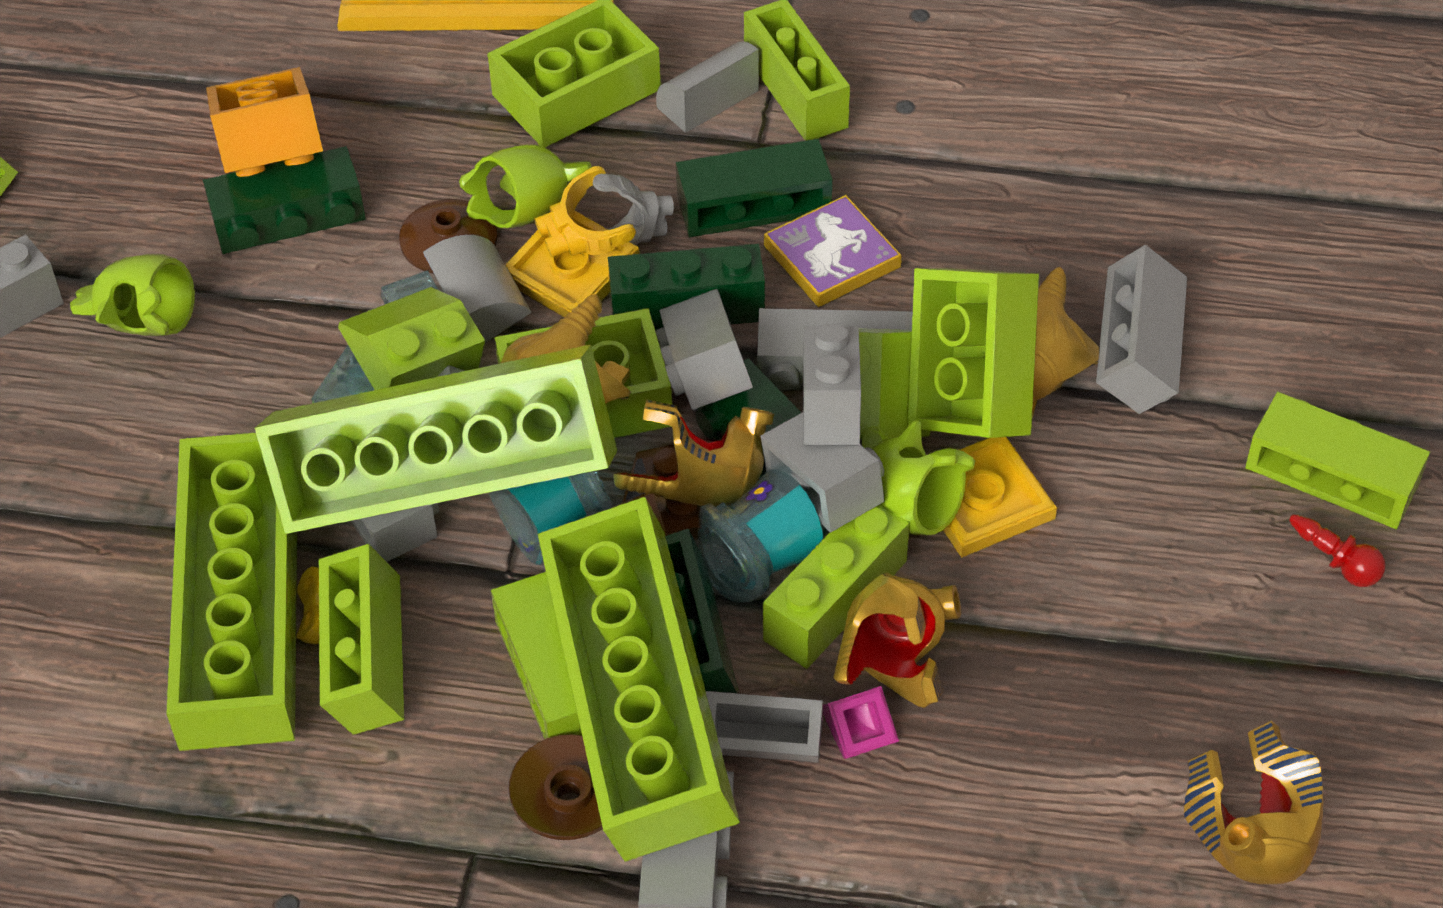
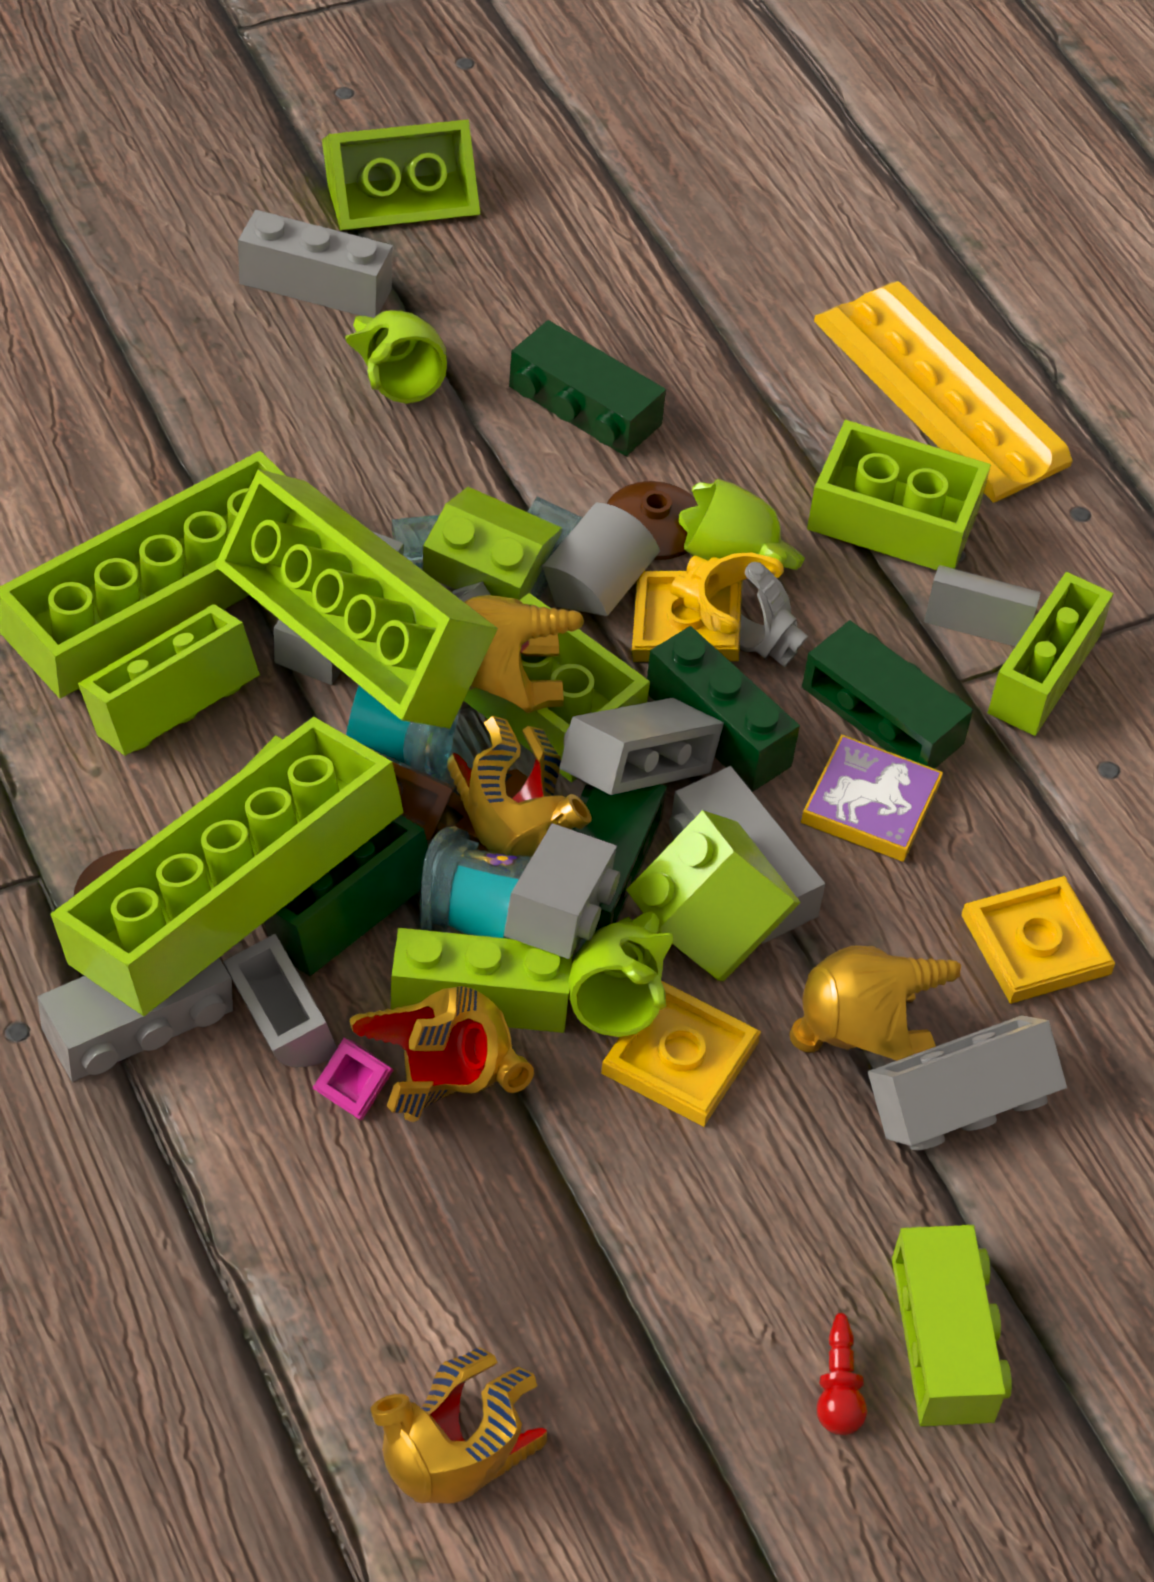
camera: 50 degrees right, 0 degrees up
(264, 122) = (634, 317): light orange brick -> none
(831, 385) = (627, 836): light grey brick -> none
(973, 351) = (786, 939): lime brick -> none
(1029, 227) = (1037, 939): none -> yellow tile

